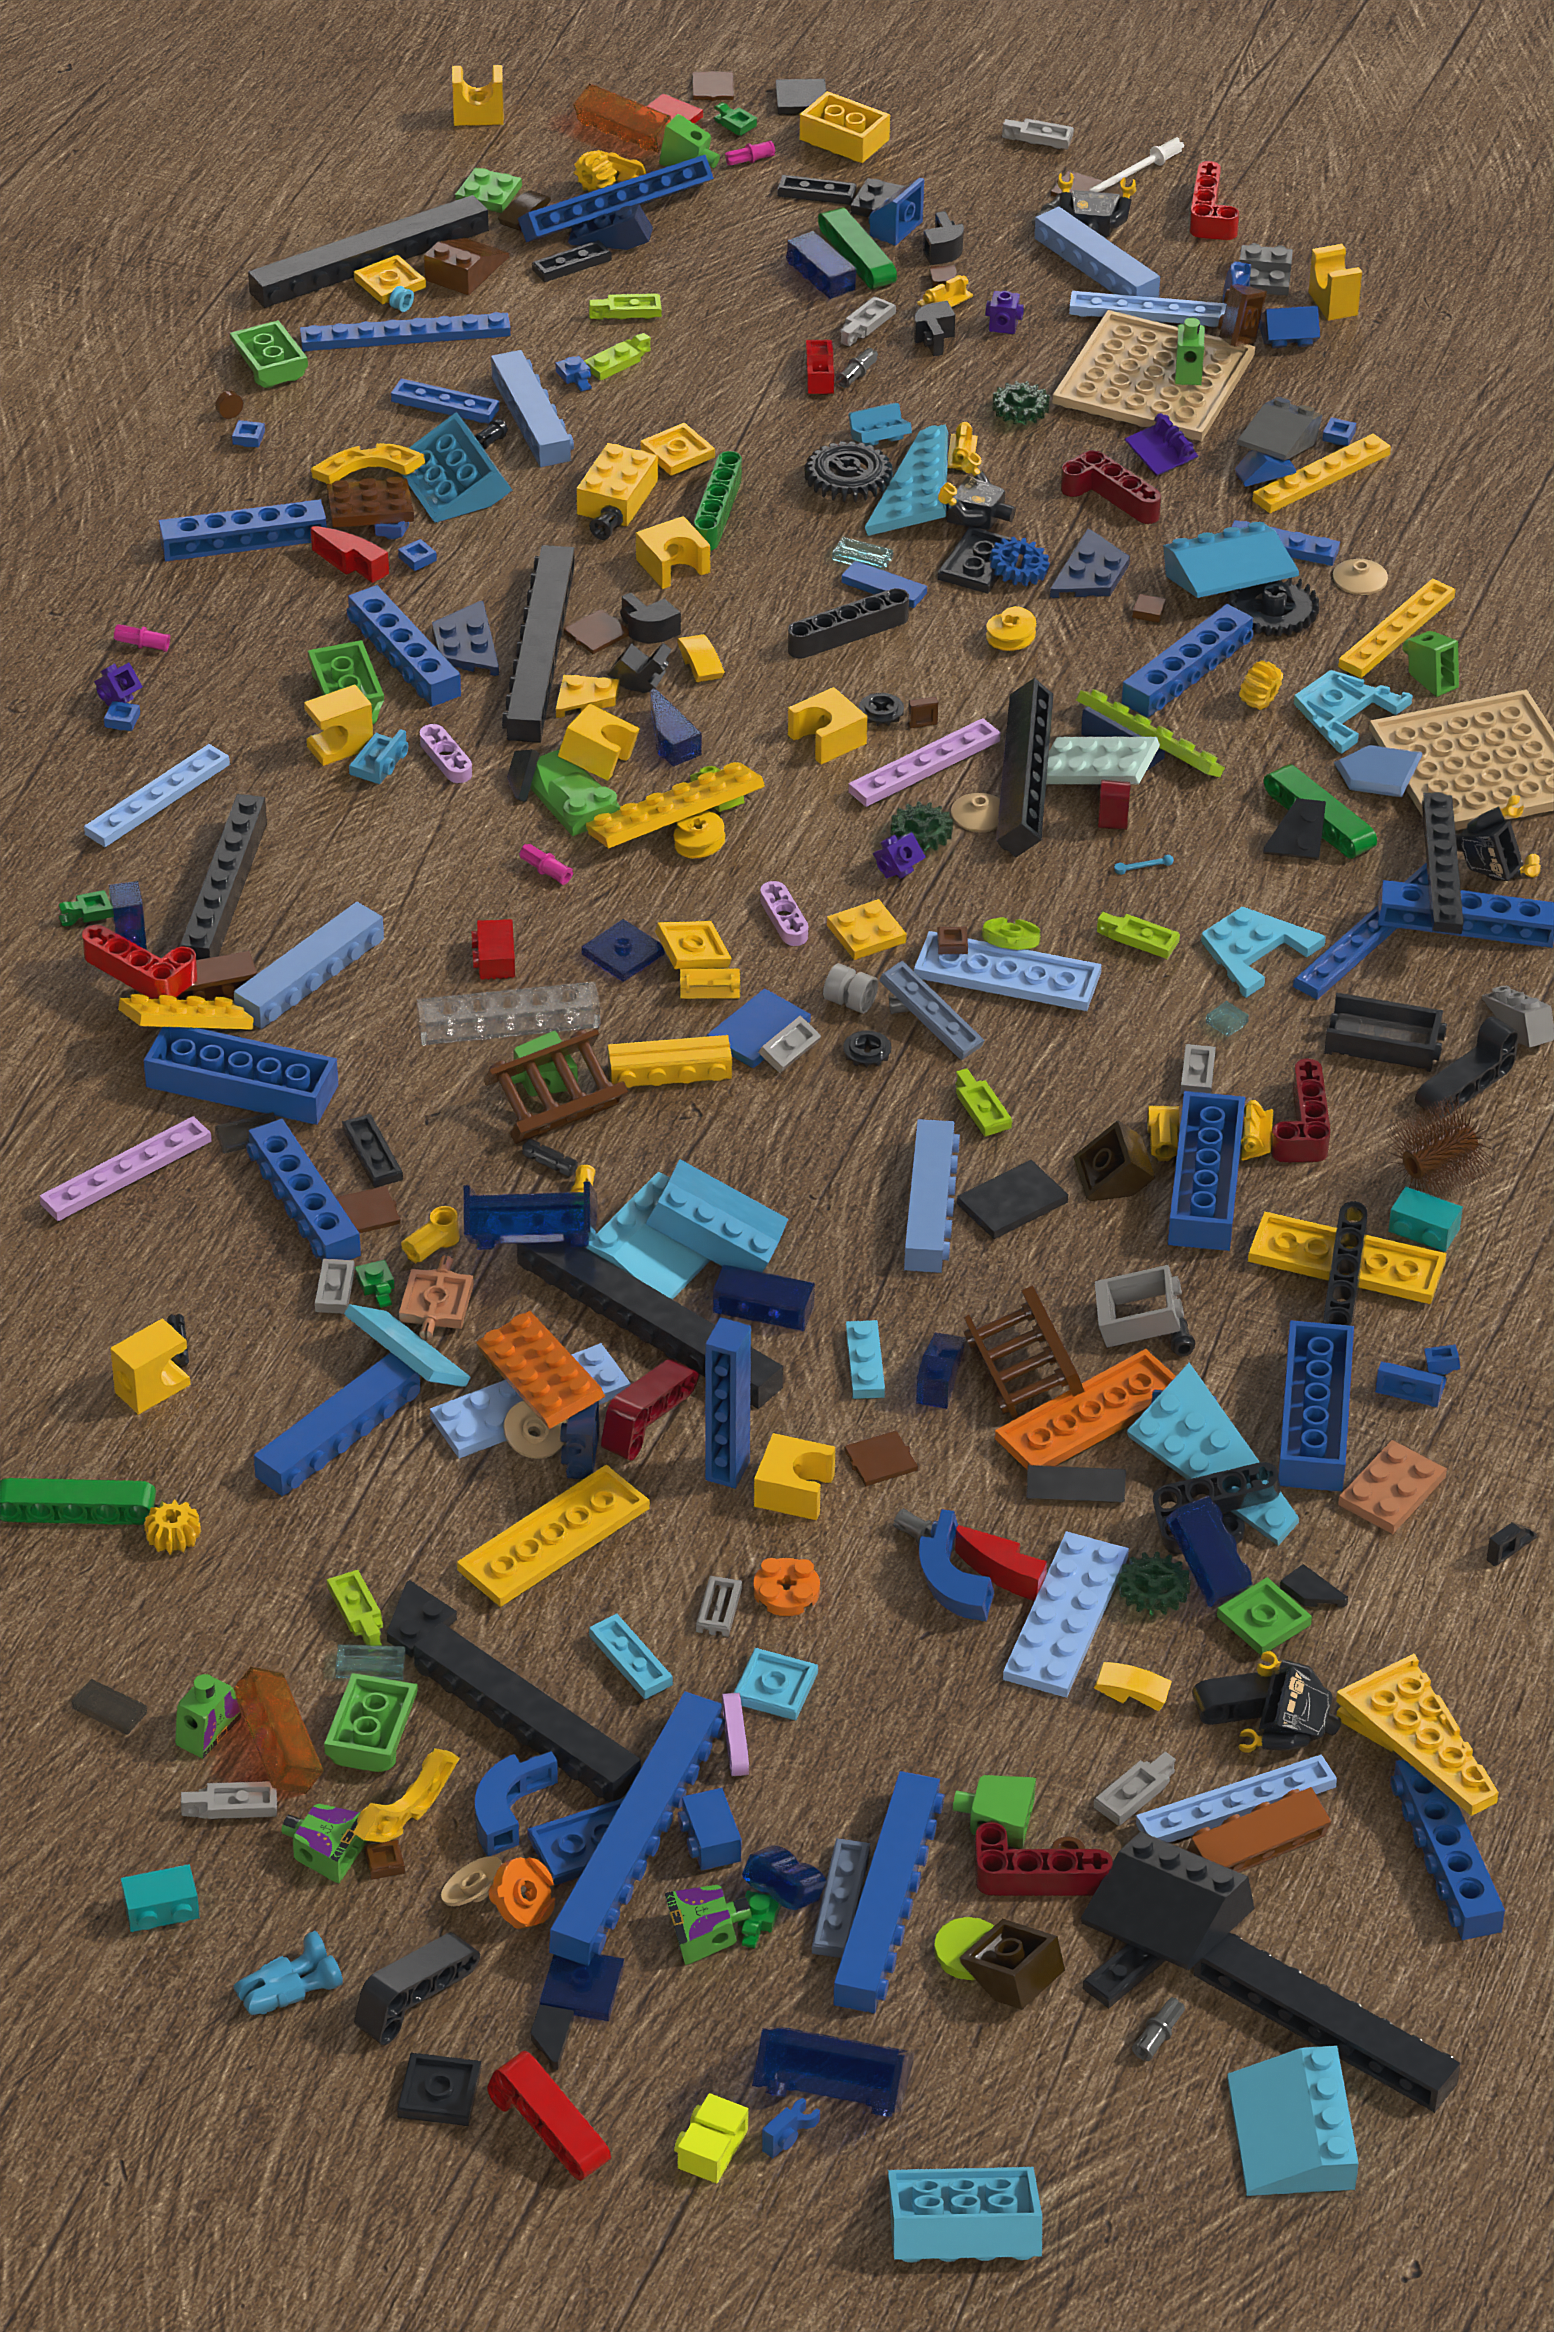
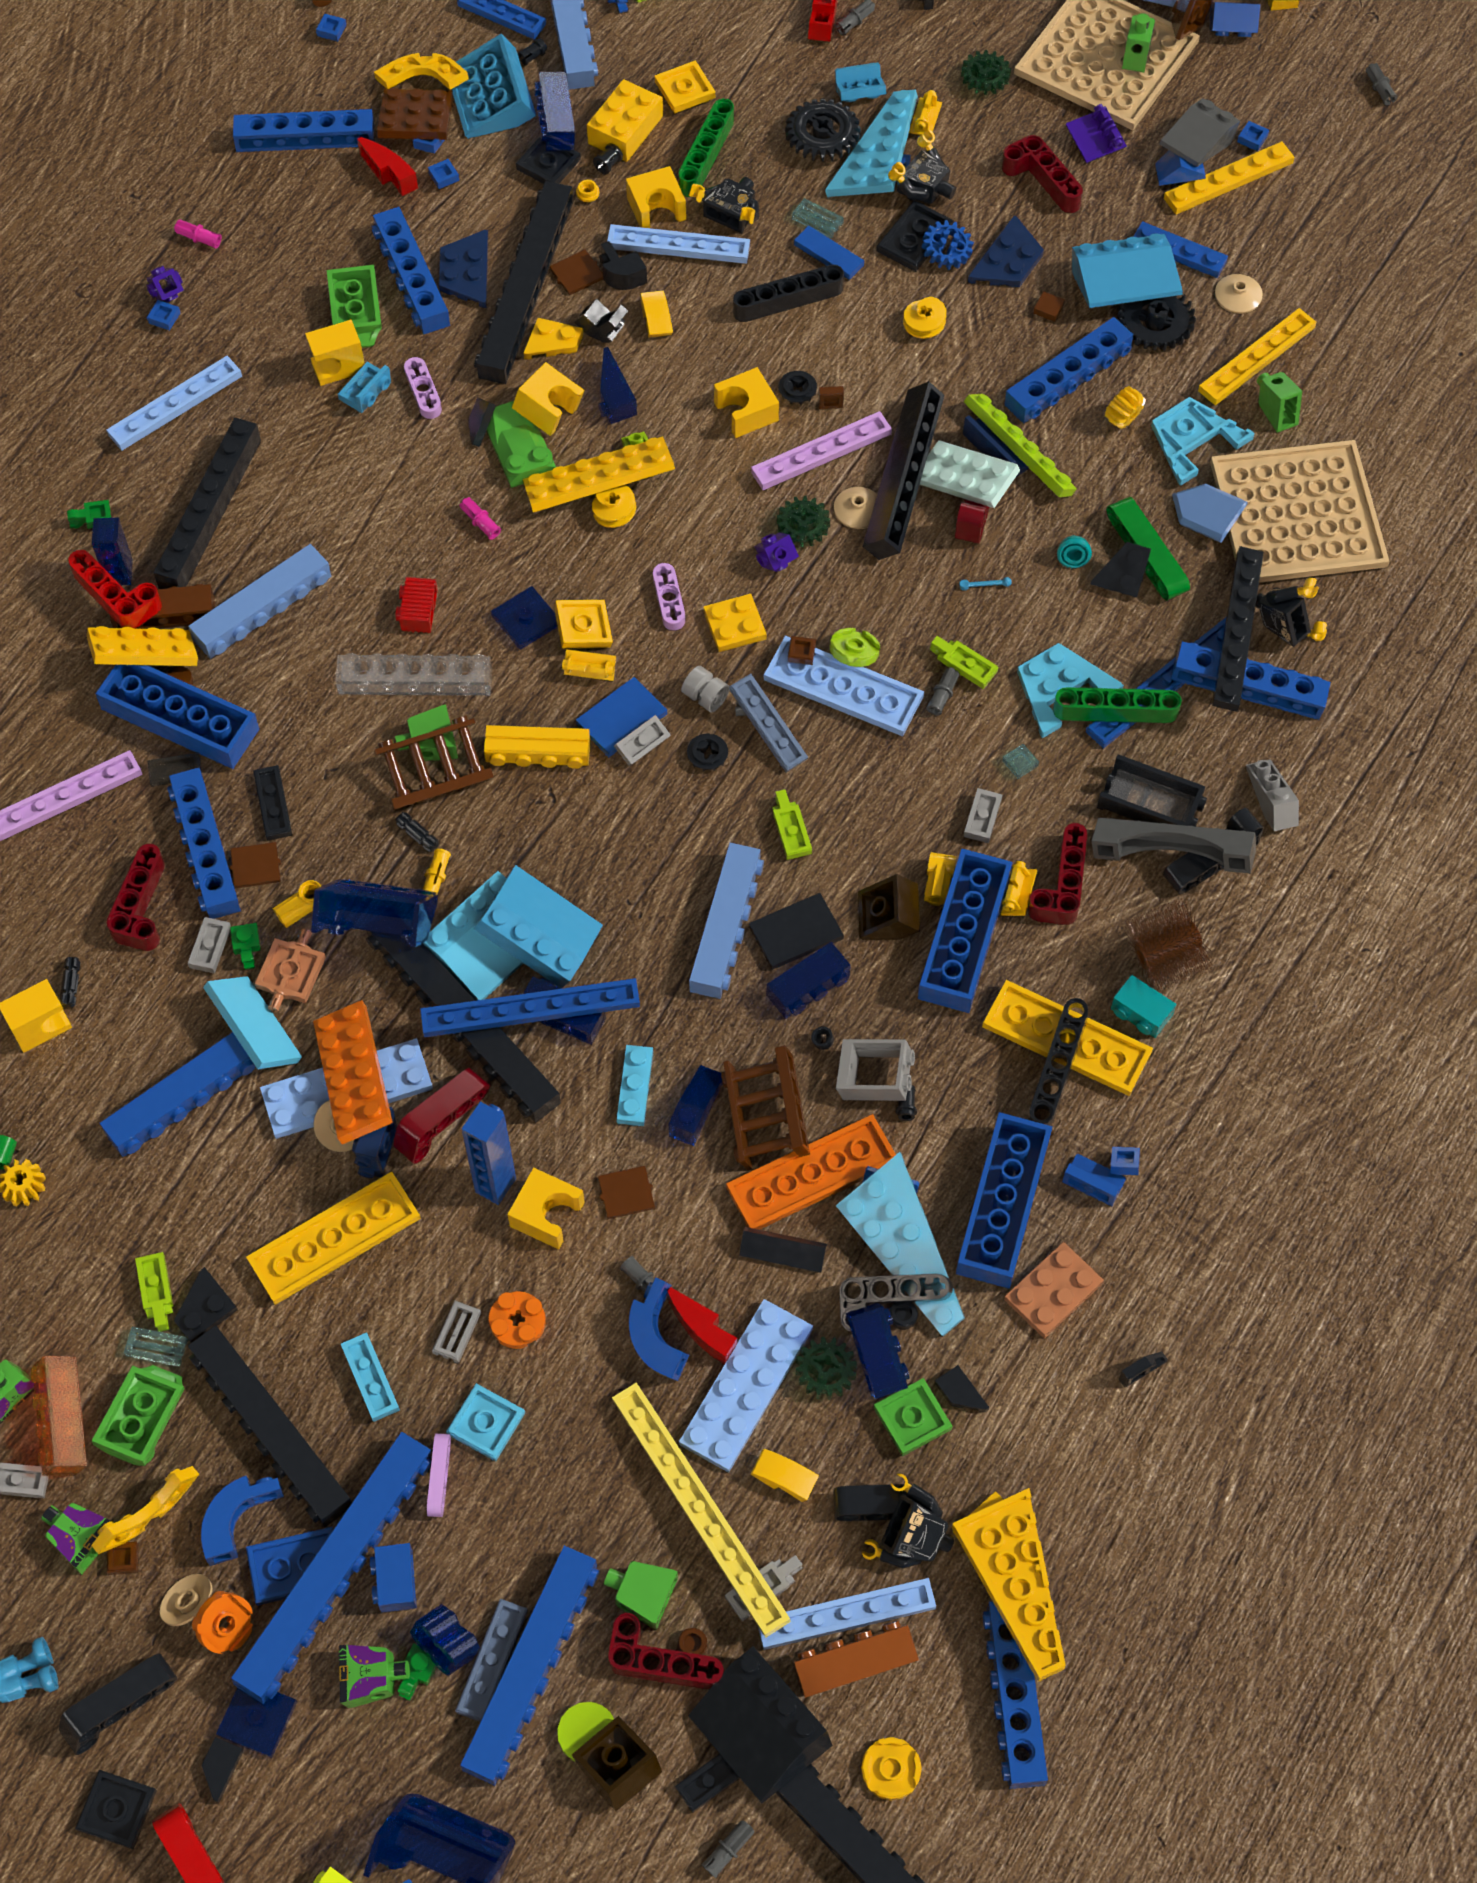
camera: 10 degrees right, 20 degrees up
(233, 1274) = (146, 866): none -> dark red beam
(535, 481) = (554, 111): none -> clear blue brick
(536, 528) = (547, 164): none -> black plate
(590, 554) = (587, 191): none -> yellow plate
(713, 591) = (679, 243): none -> light blue plate
(730, 1288) = (530, 1007): none -> blue plate
(757, 548) = (729, 203): none -> torso
(1039, 1238) = (808, 980): none -> clear blue brick
(1047, 1723) = (701, 1510): none -> light yellow plate
(1066, 1283) = (817, 1038): none -> black hinge
(1122, 965) = (943, 691): none -> dark grey axle
(1238, 822) = (1074, 552): none -> teal brick
(1323, 950) = (1127, 699): none -> green beam
(1324, 1936) = (891, 1768): none -> yellow tile
(1470, 372) = (1381, 83): none -> dark grey axle
(1479, 1054) = (1123, 837): none -> dark grey arch

